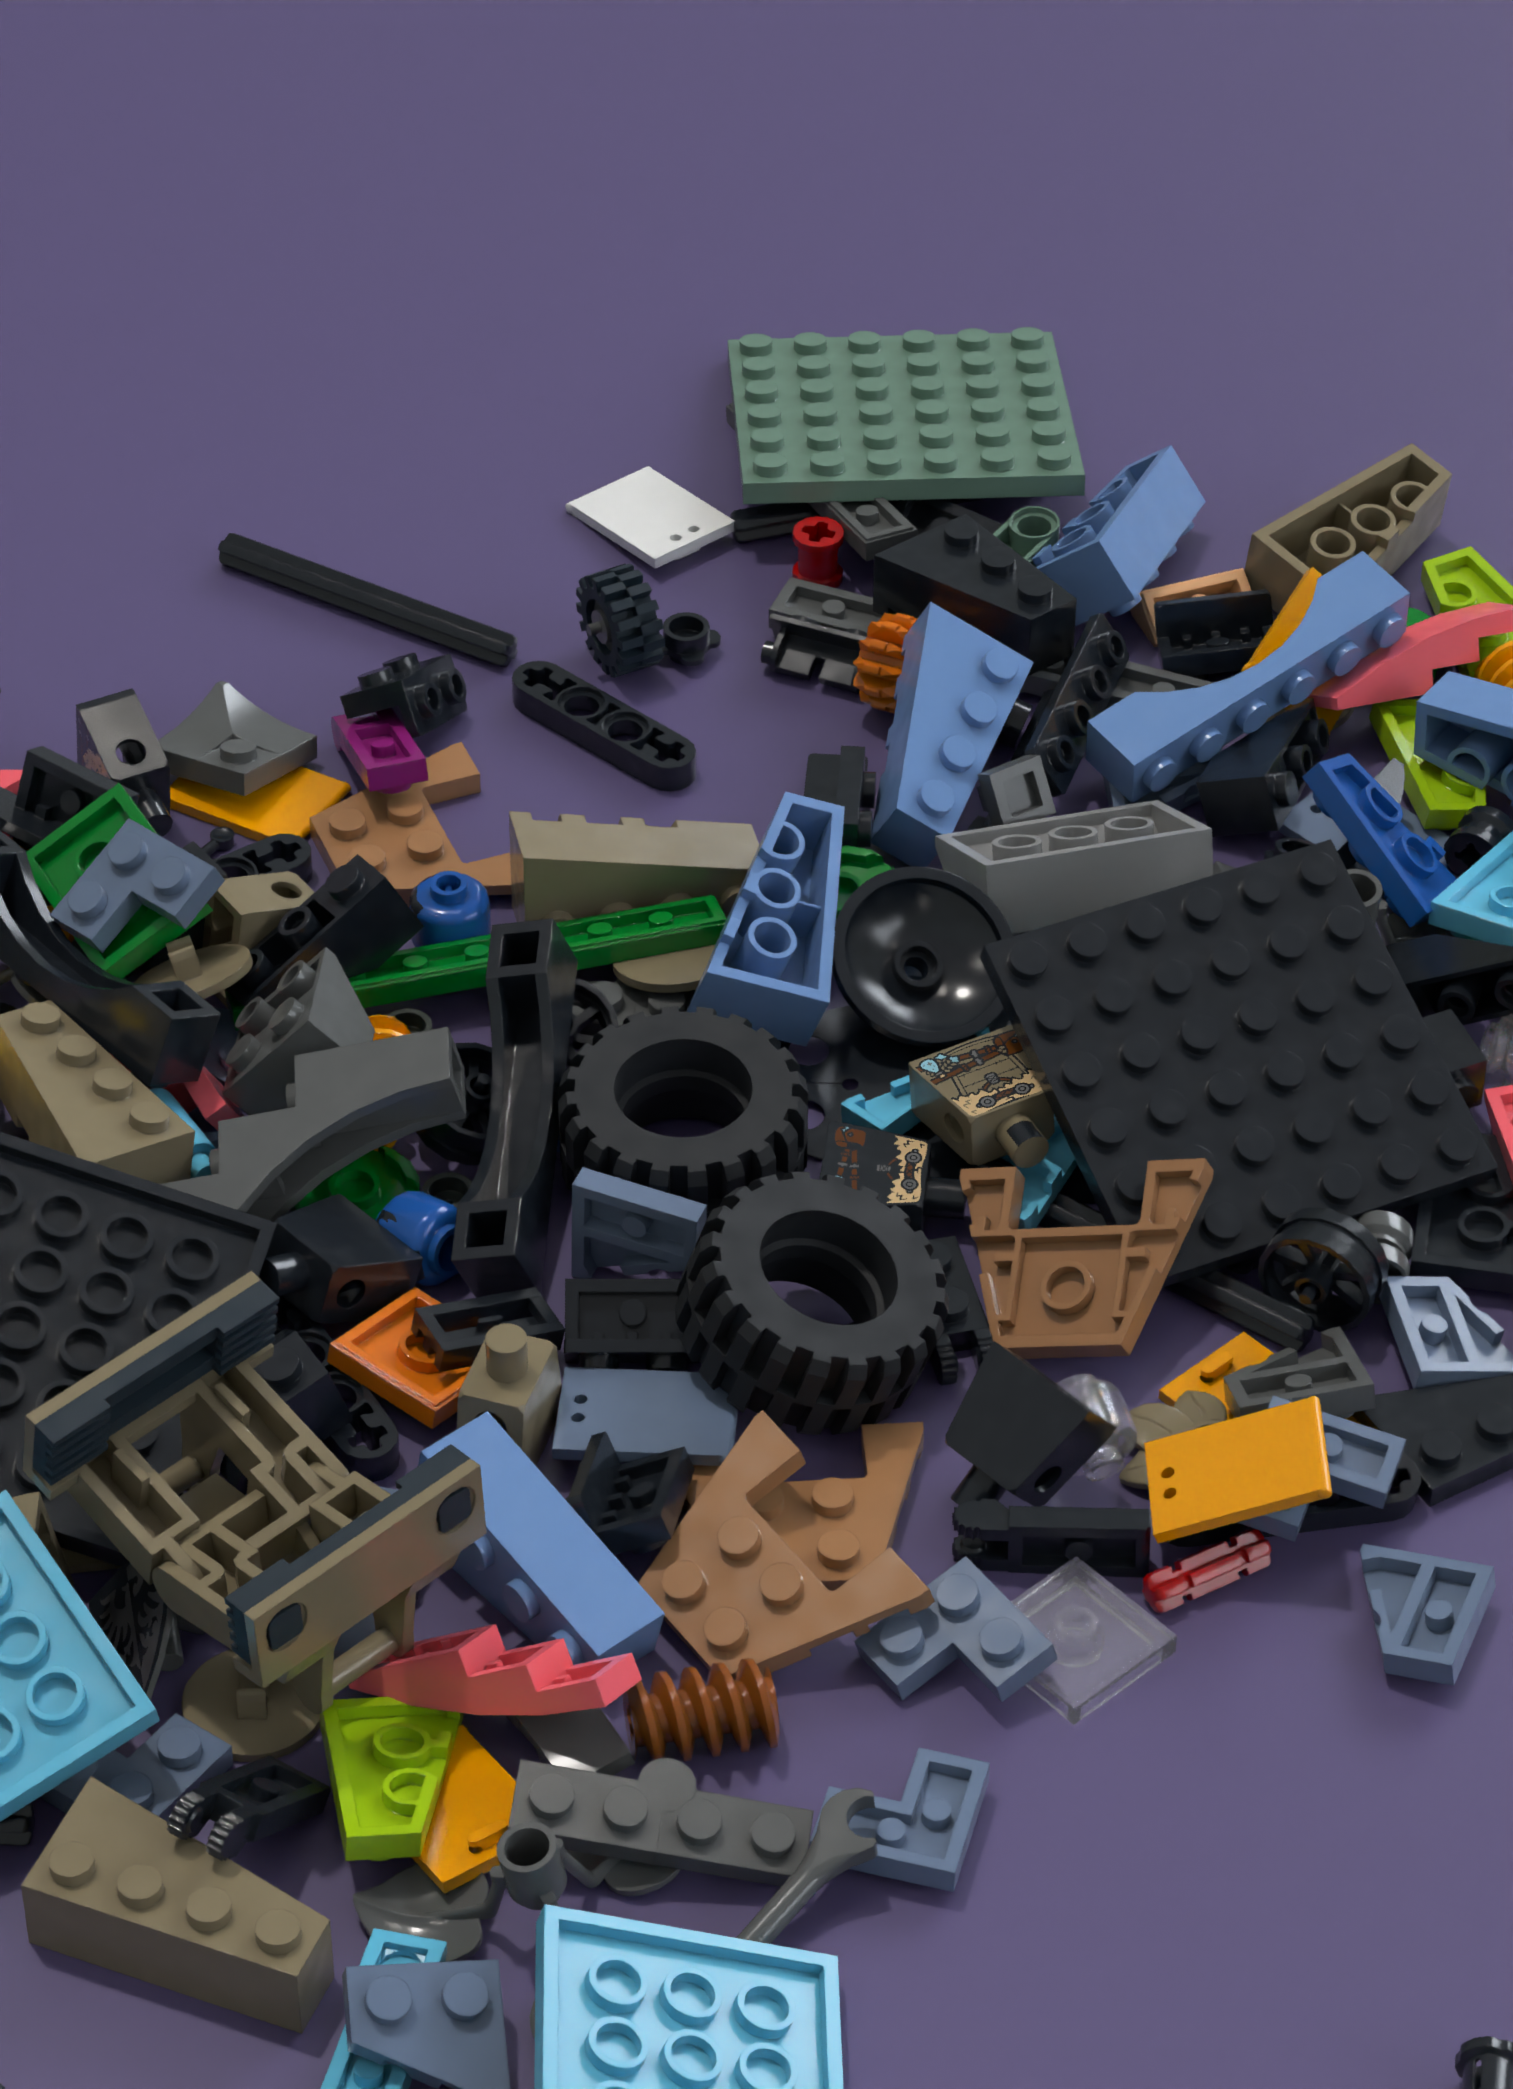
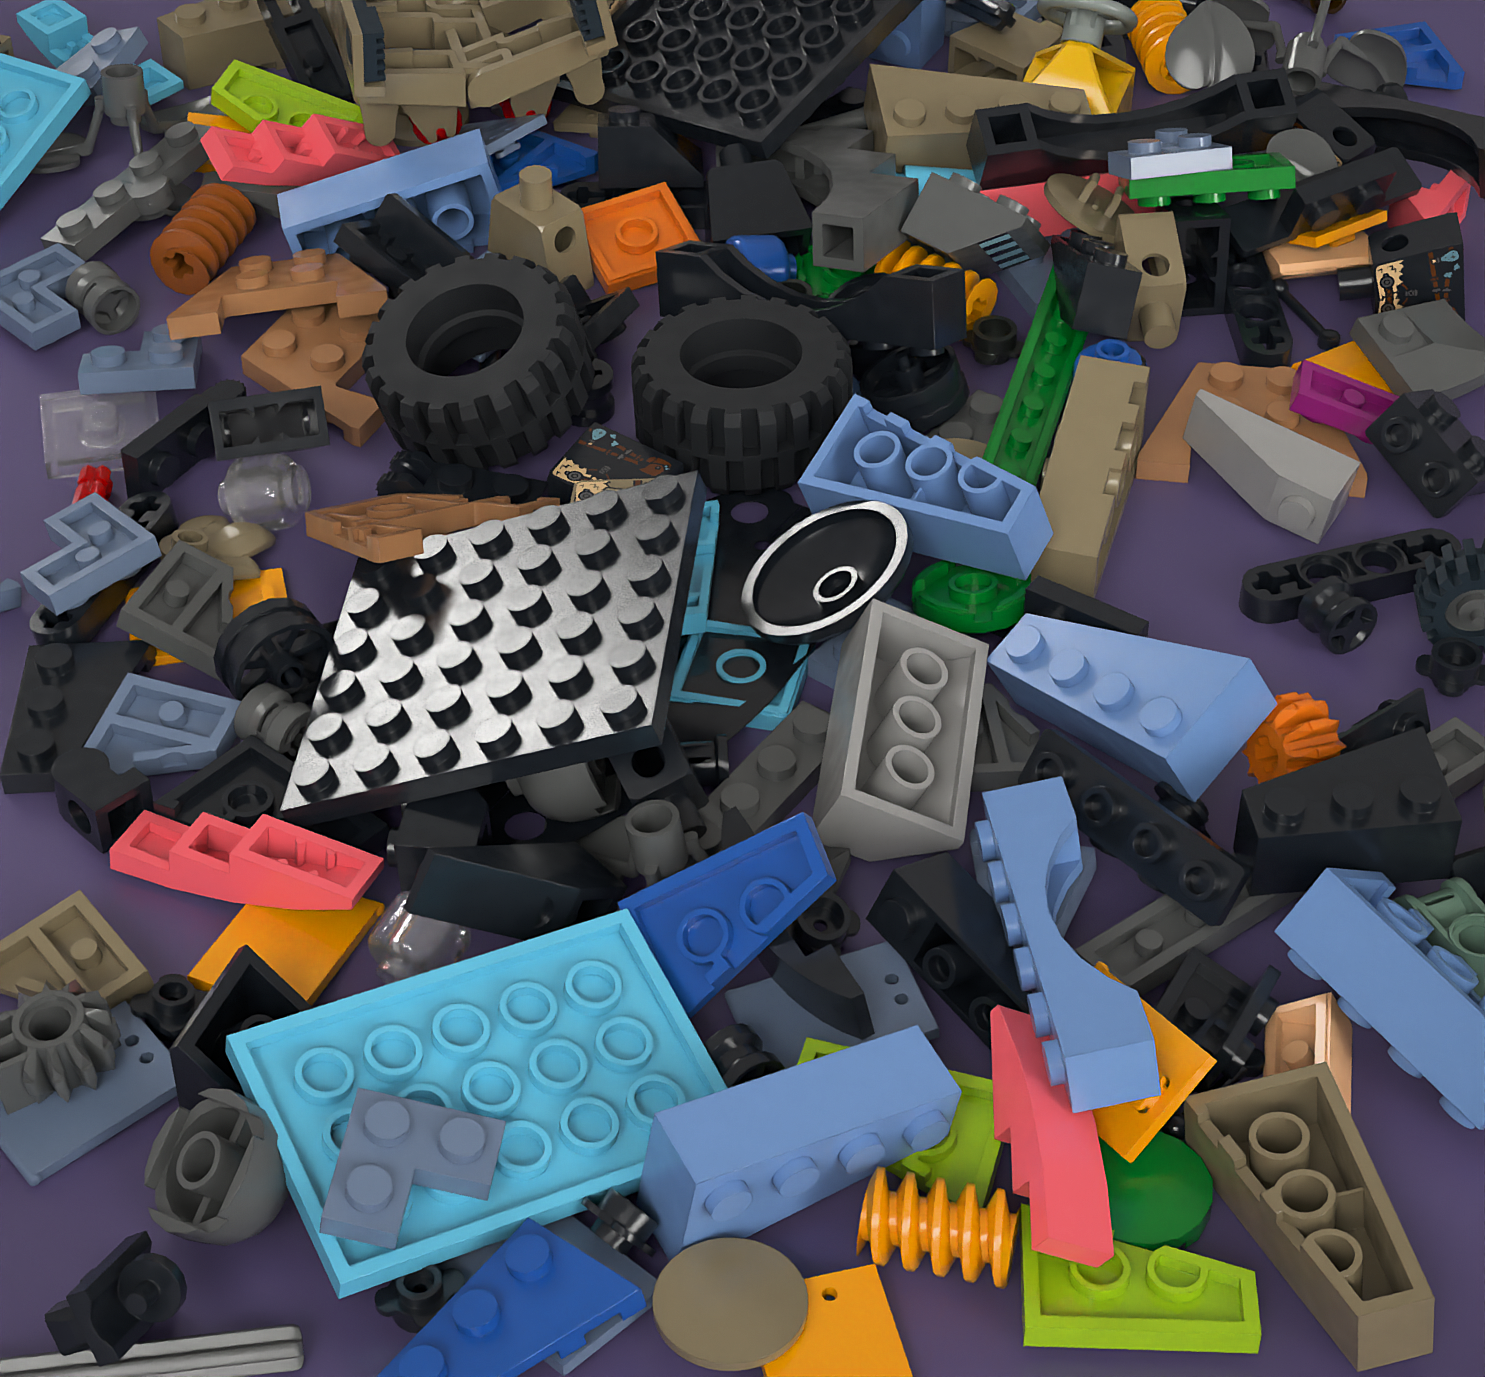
camera: 120 degrees right, 0 degrees up
(459, 1327) = (629, 222): black tile -> none
(513, 774) = (1271, 466): none -> light grey slope
(630, 1226) = (623, 318): sand blue wing -> none
(683, 701) = (1337, 614): none -> black wheel
(830, 1854) = (33, 237): dark grey piece -> none
(866, 1753) = (102, 297): none -> dark grey wheel
(1016, 791) = (1018, 724): dark grey tile -> none
(1237, 1469) = (110, 493): light orange container -> none

